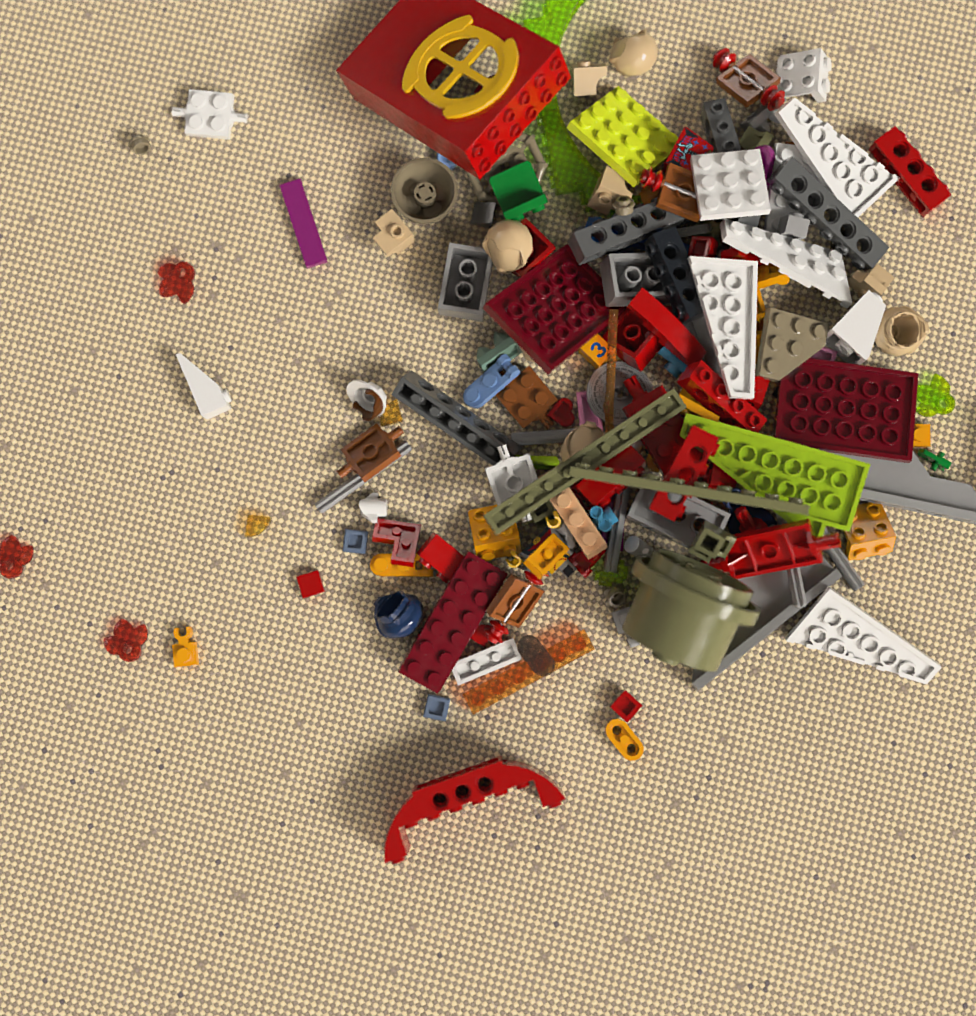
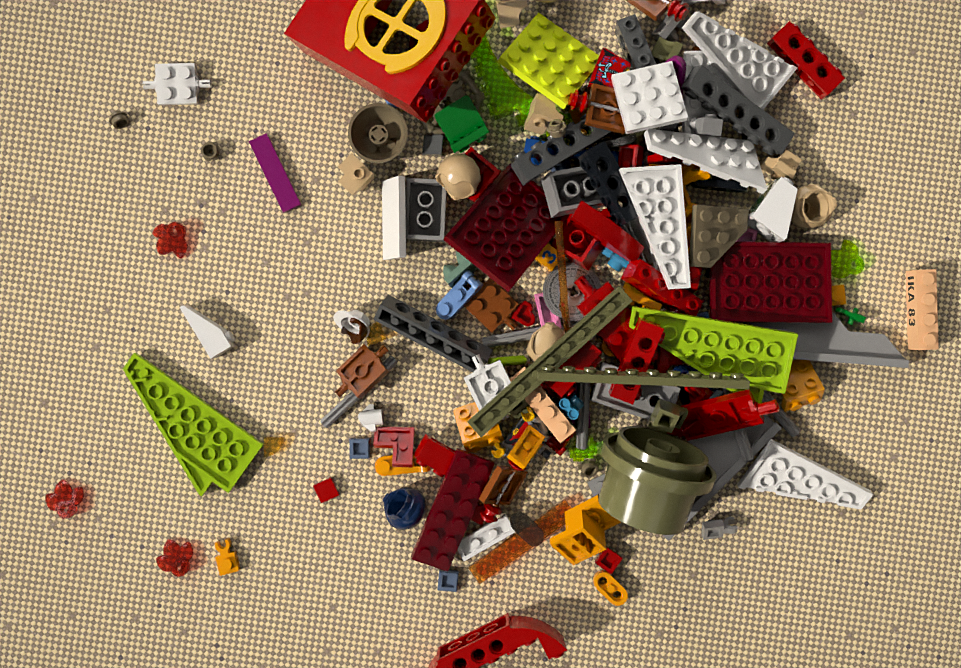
camera: 10 degrees left, 5 degrees up
(176, 505) = (200, 436): none -> lime wing
(235, 185) = (210, 156): none -> dark tan plate
(429, 286) = (394, 218): none -> white tile
(602, 664) = (583, 531): none -> light orange bracket
(636, 547) = (604, 425): white piece -> none
(755, 684) = (716, 528): none -> light grey plate
(799, 295) = (719, 184): none -> black plate

